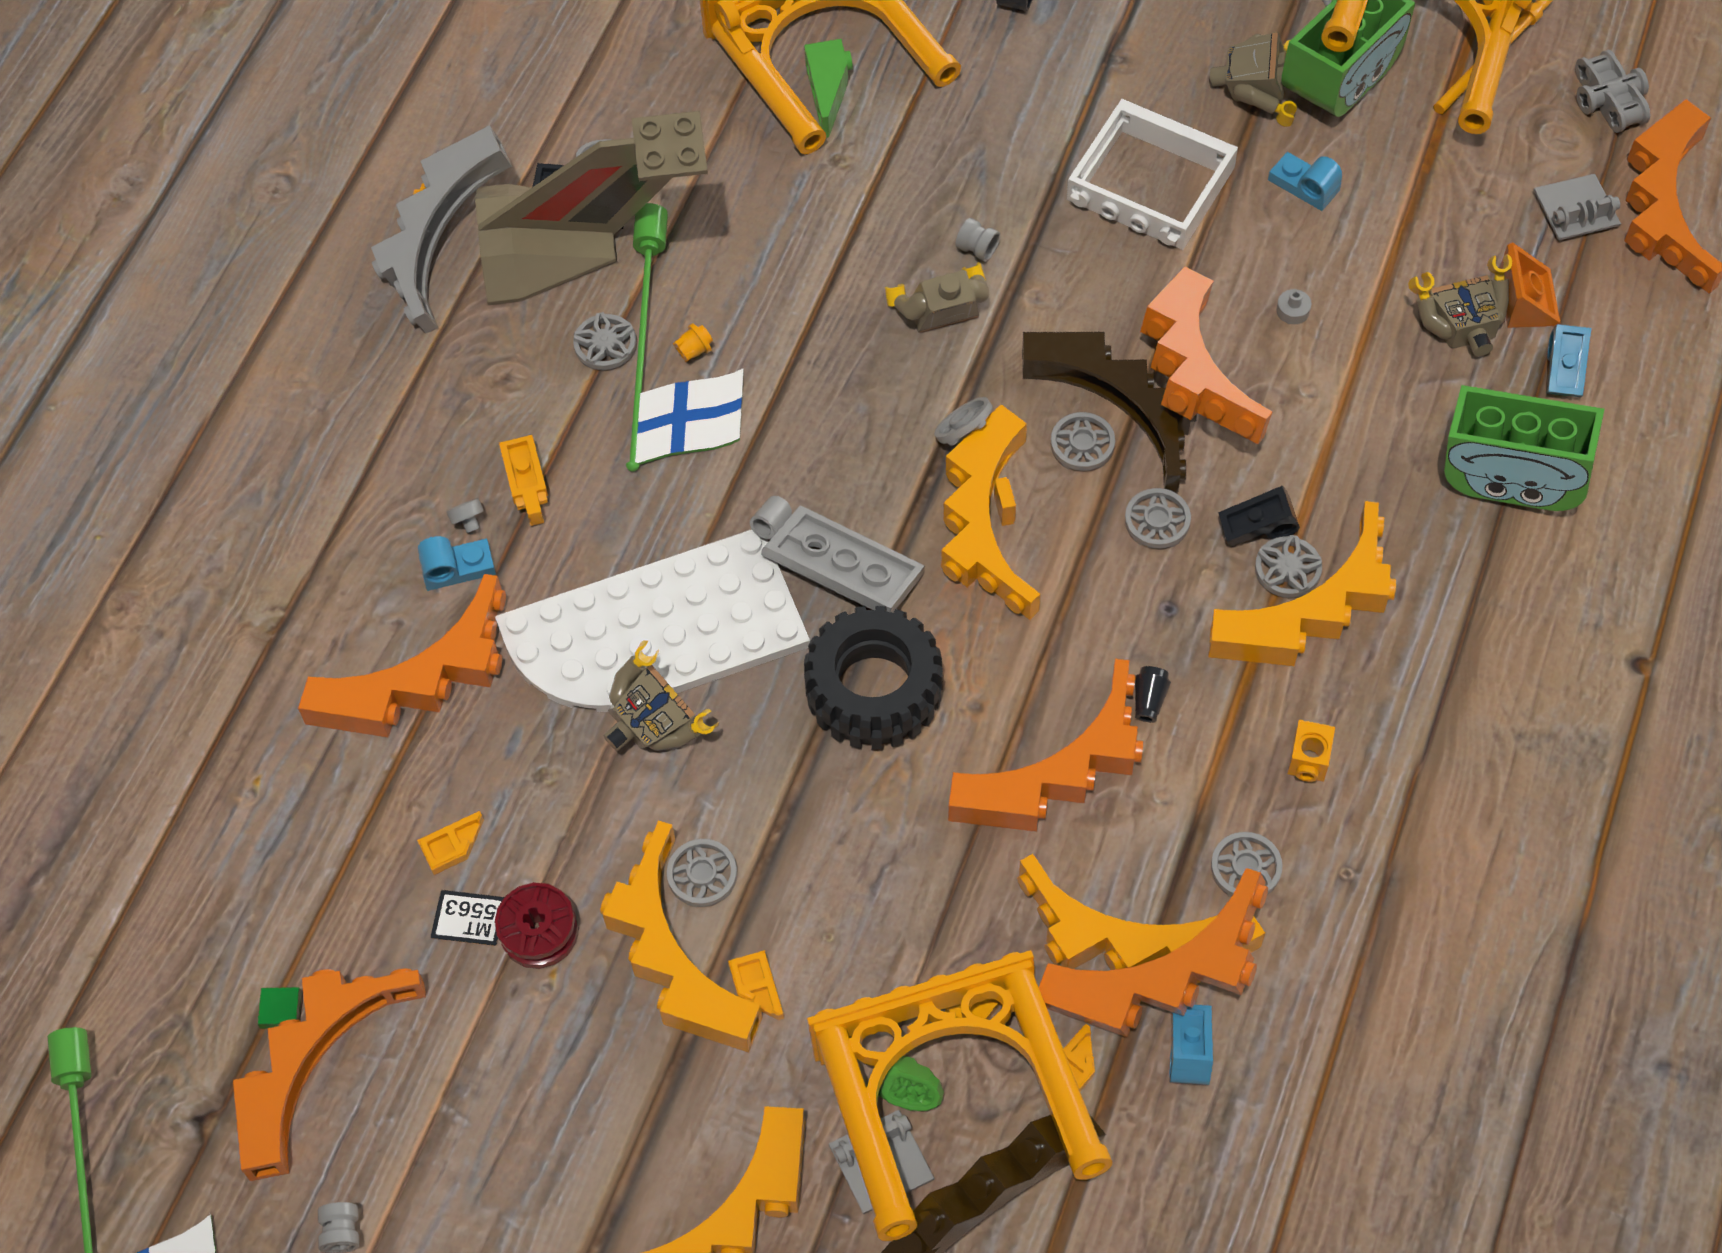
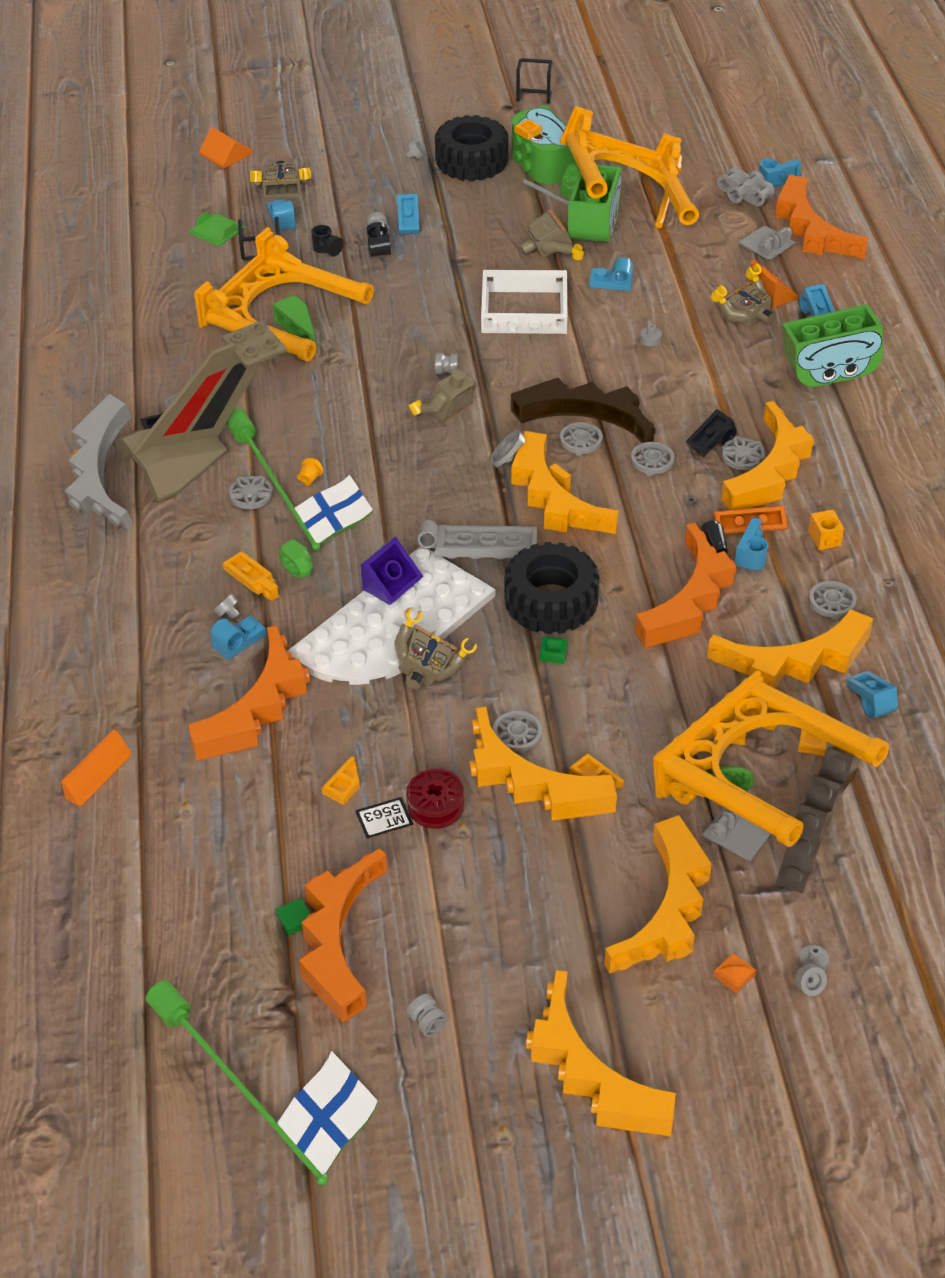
camera: 30 degrees left, 15 degrees down
(180, 683) = (95, 769): none -> orange slope
(593, 477) = (296, 559): none -> bright green rock
(680, 560) = (389, 572): none -> dark purple slope
(826, 769) = (553, 650): none -> green tile
(1169, 982) = (844, 658): orange arch -> none
(1180, 354) = (632, 377): orange arch -> none
(1190, 727) = (752, 548): none -> dark azure plate
(1222, 684) = (738, 520): none -> orange slope
(1672, 86) = (778, 173): none -> dark azure plate

